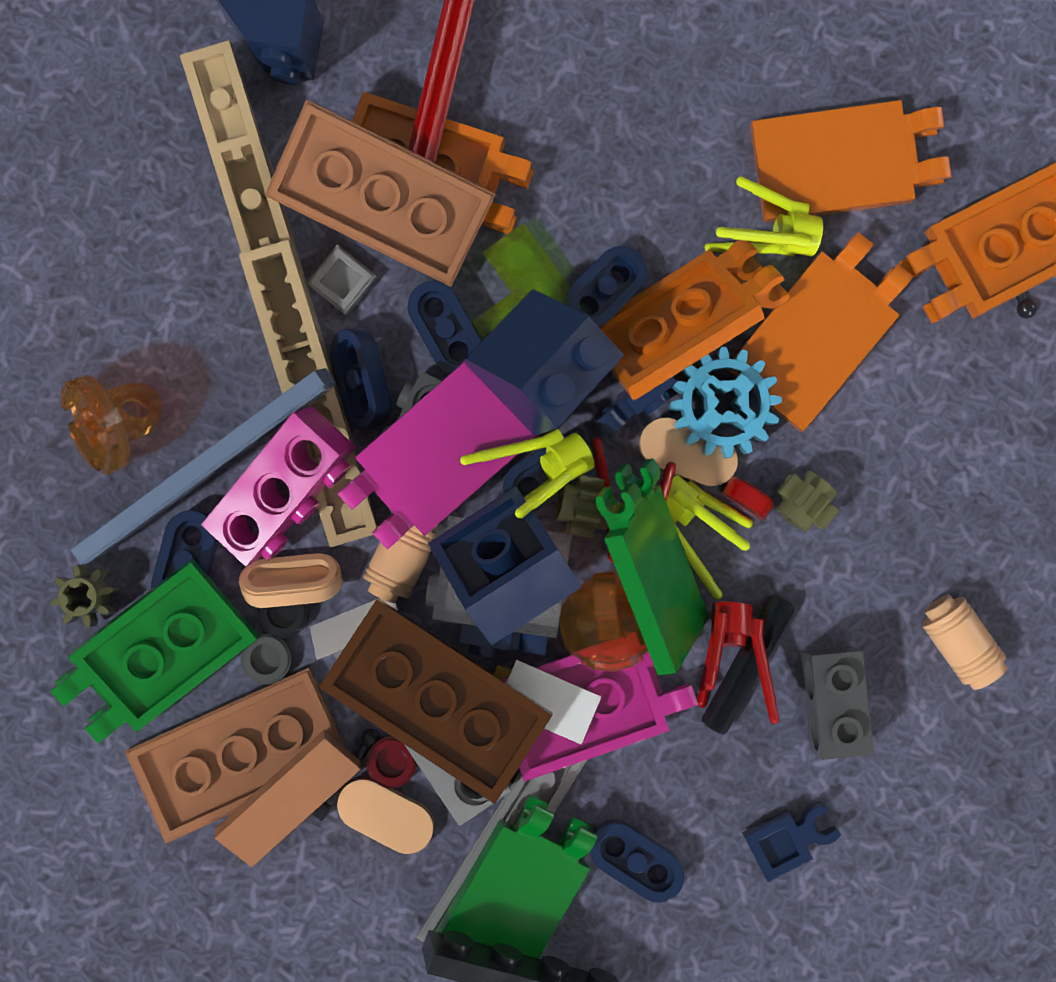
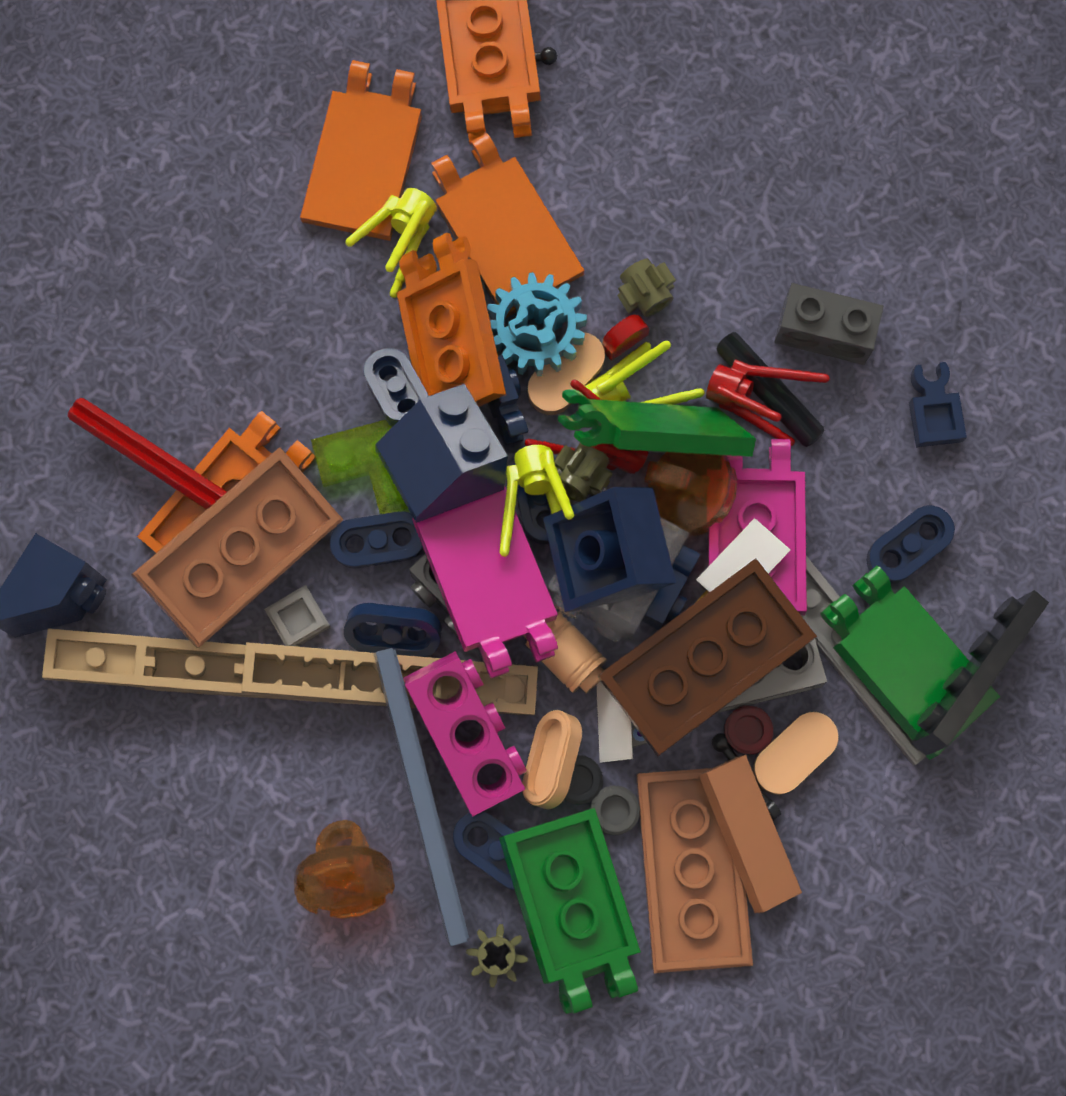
camera: 75 degrees left, 10 degrees down
(964, 641) = (813, 203): light nougat head -> none

